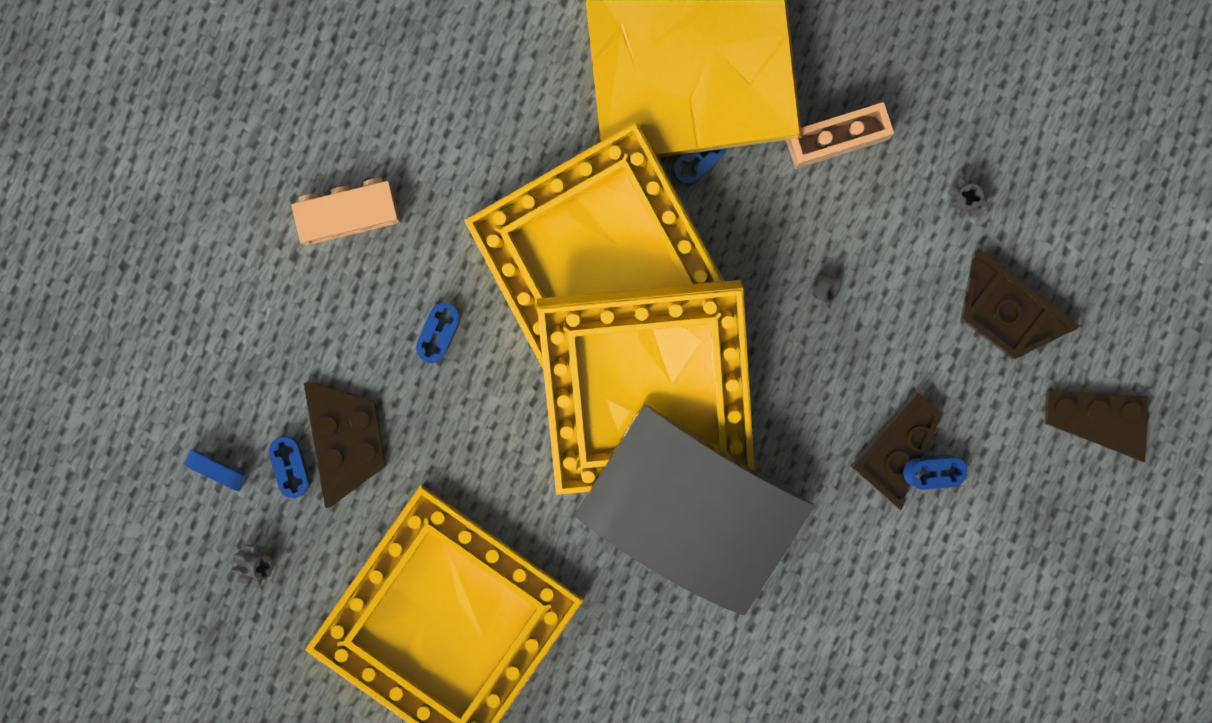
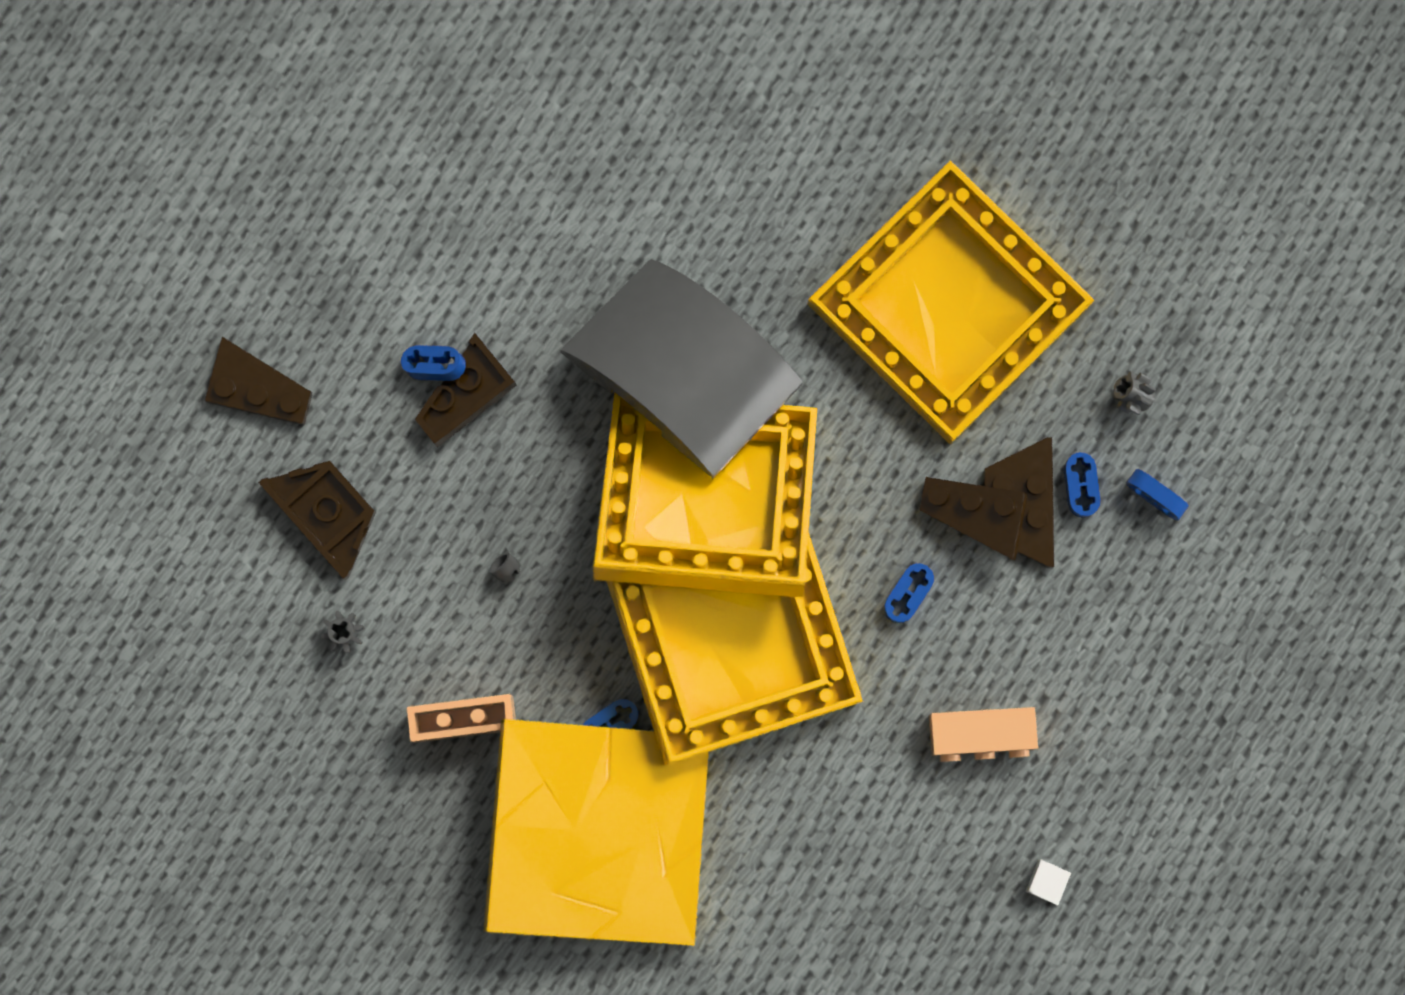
camera: 165 degrees left, 5 degrees down
(263, 86) = (1048, 882): none -> white slope
(385, 421) = (977, 511): none -> dark brown wing

